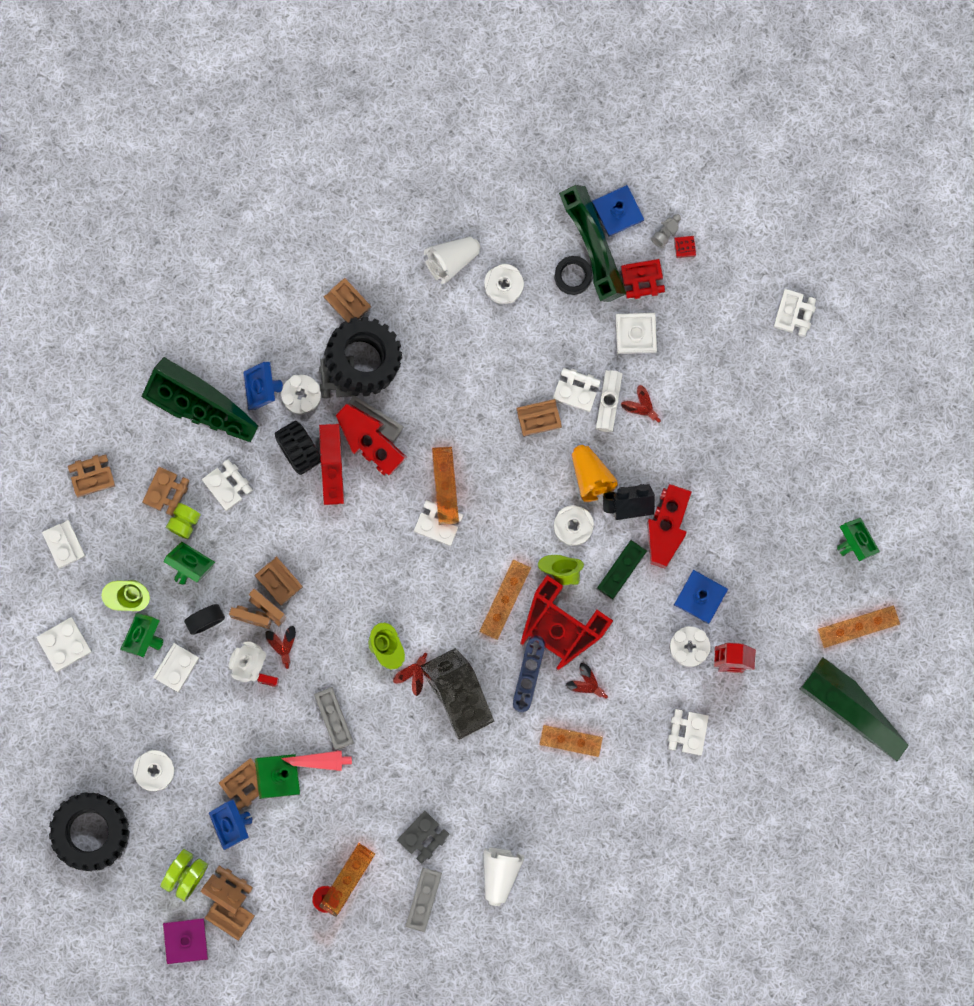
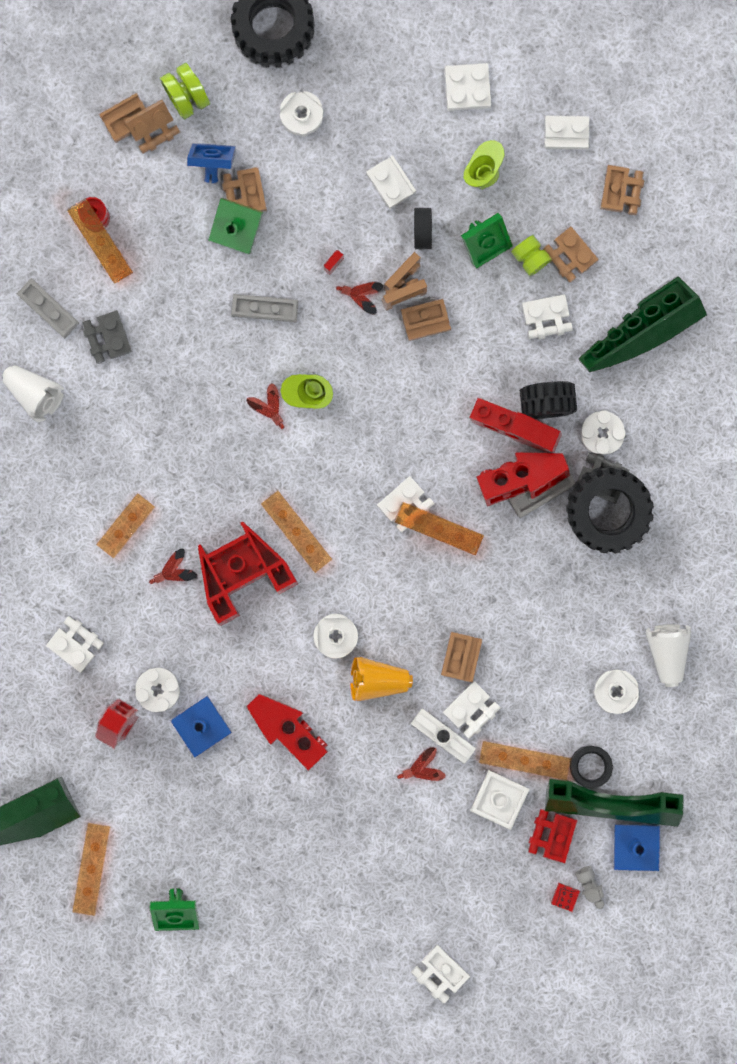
camera: 125 degrees right, 5 degrees up
(142, 636) = (437, 161): green tile -> none
(185, 941) = (125, 67): magenta plate -> none
(254, 655) = (361, 259): white plate -> none
(260, 386) = (629, 395): blue tile -> none
(327, 760) = (227, 280): coral bar -> none
(347, 301) = (675, 525): medium nougat plate -> none
(459, 692) = (227, 437): clear smoke bracket -> none
(529, 674) = (210, 514): dark blue beam -> none
(562, 568) = (298, 602): lime piece -> none
(595, 329) = (524, 760): none -> clear orange tile
(621, 569) = (268, 662): dark green tile -> none
(630, 502) = (329, 703): black hinge -> none

